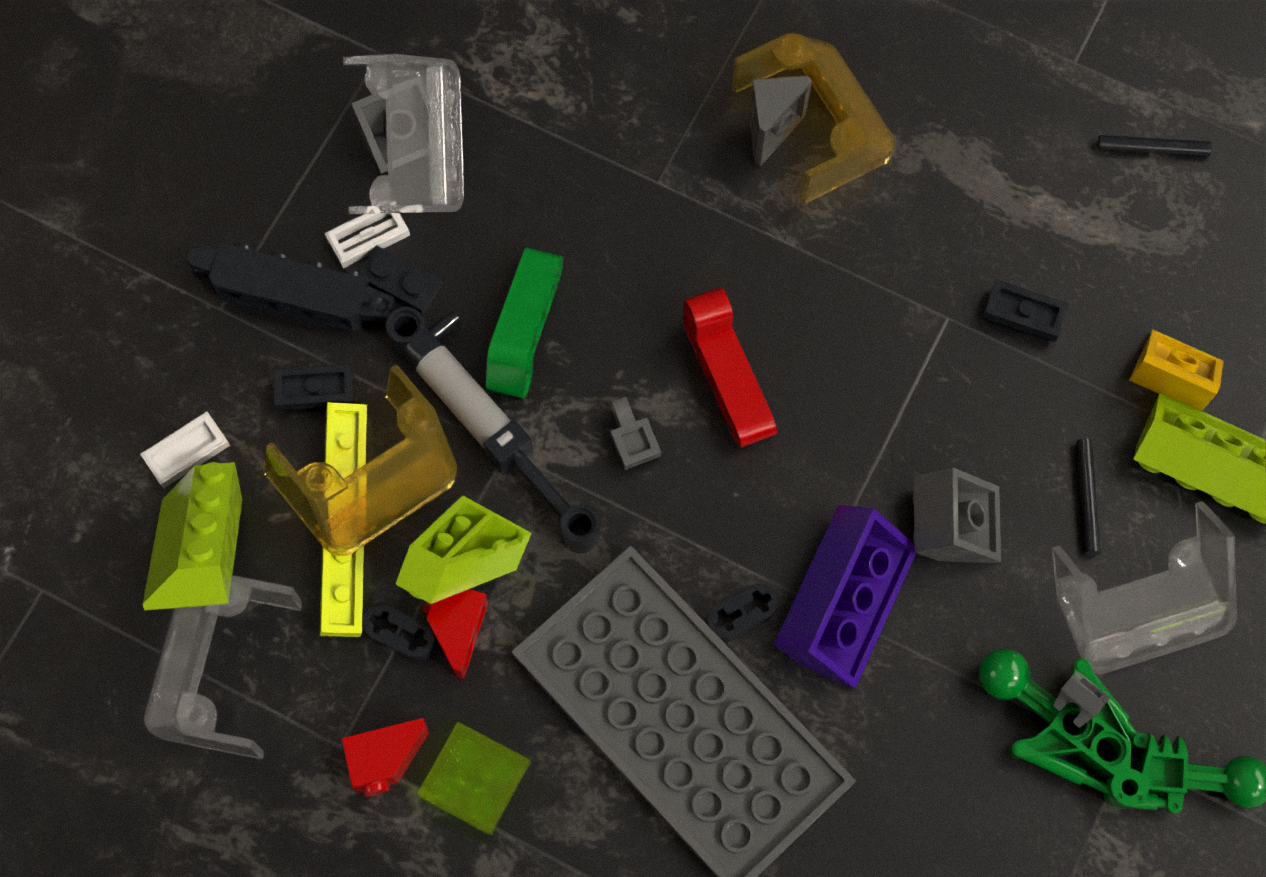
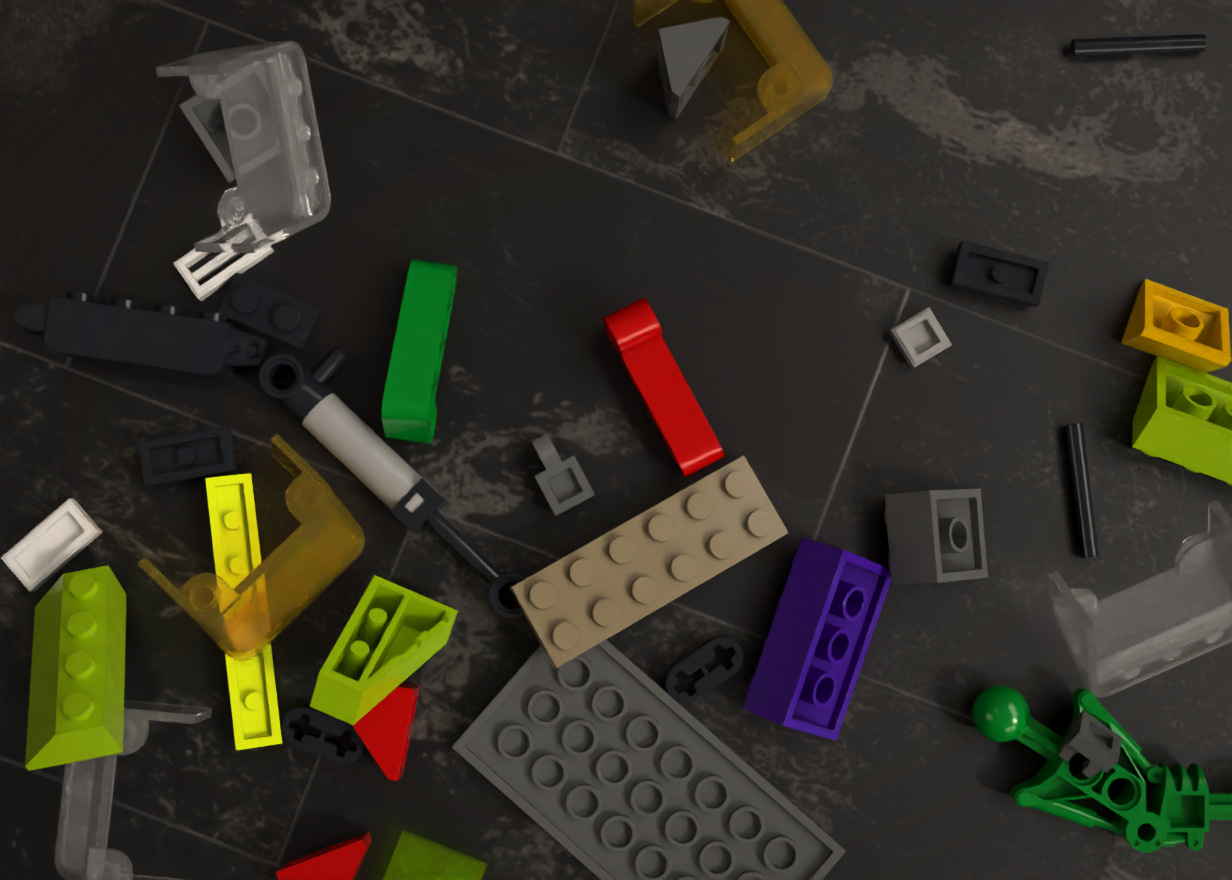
camera: 10 degrees left, 15 degrees up
(702, 510) = (648, 561): none -> dark tan plate
(954, 357) = (920, 338): none -> light grey tile

